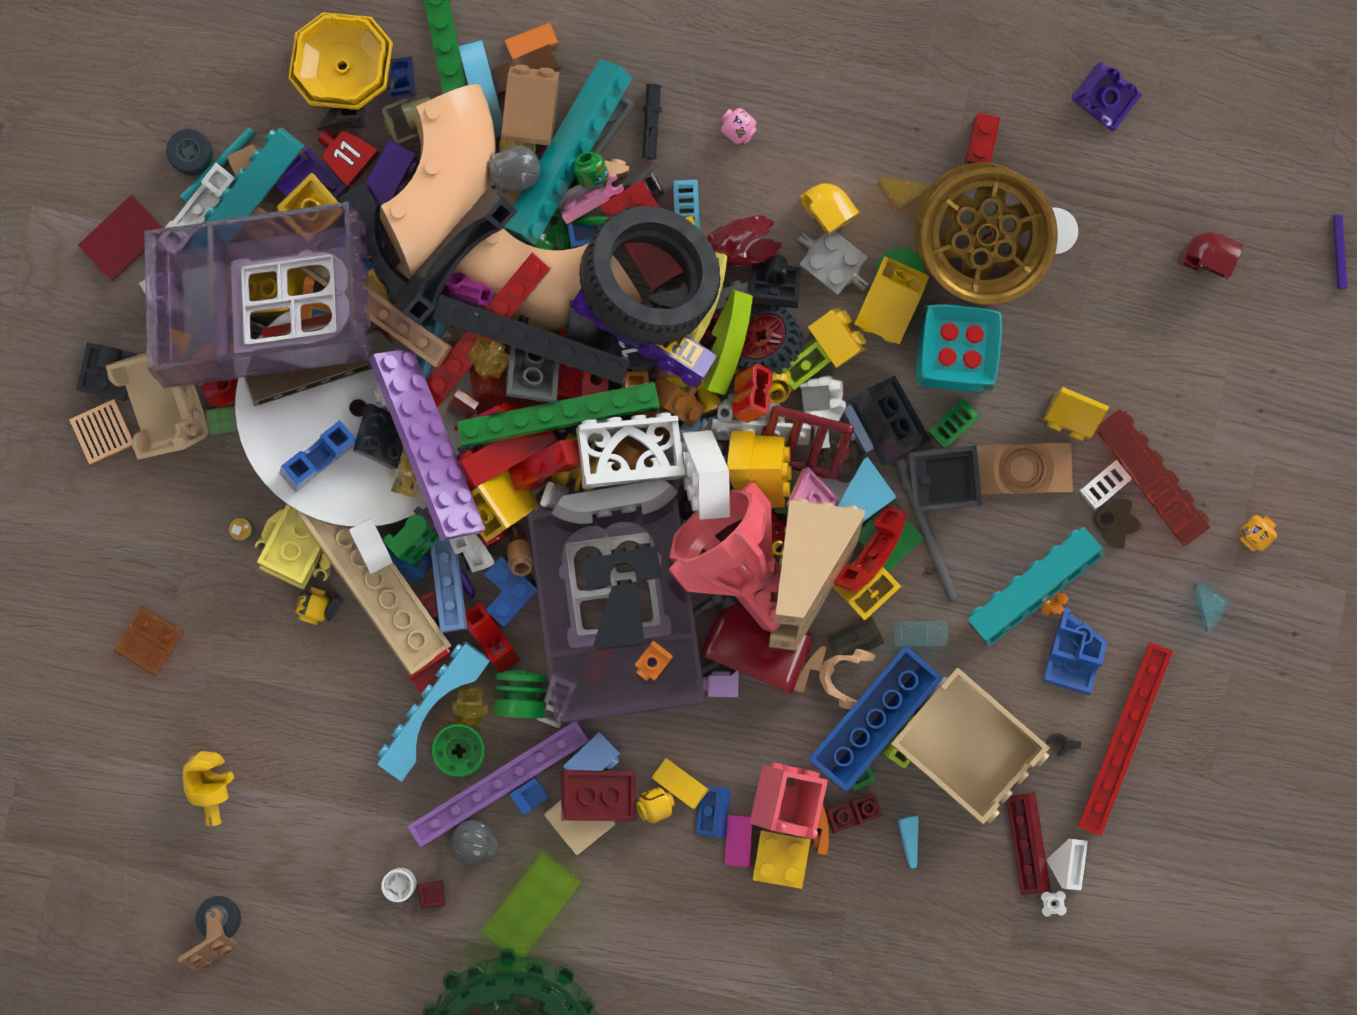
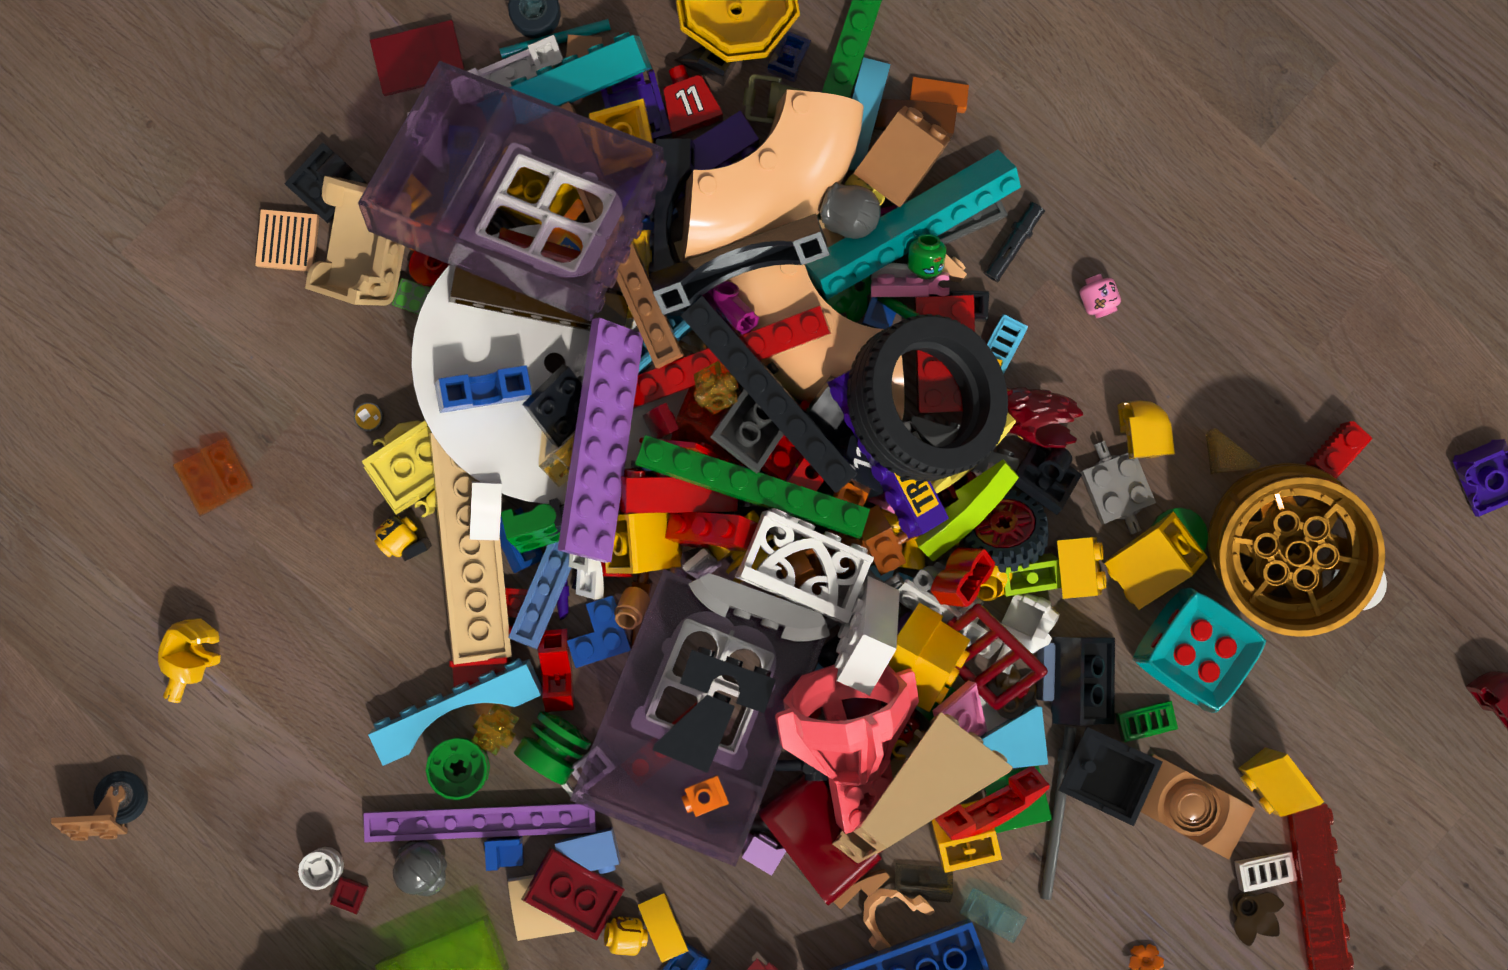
camera: 25 degrees right, 0 degrees up
(1036, 586) = (1138, 935): teal brick -> none

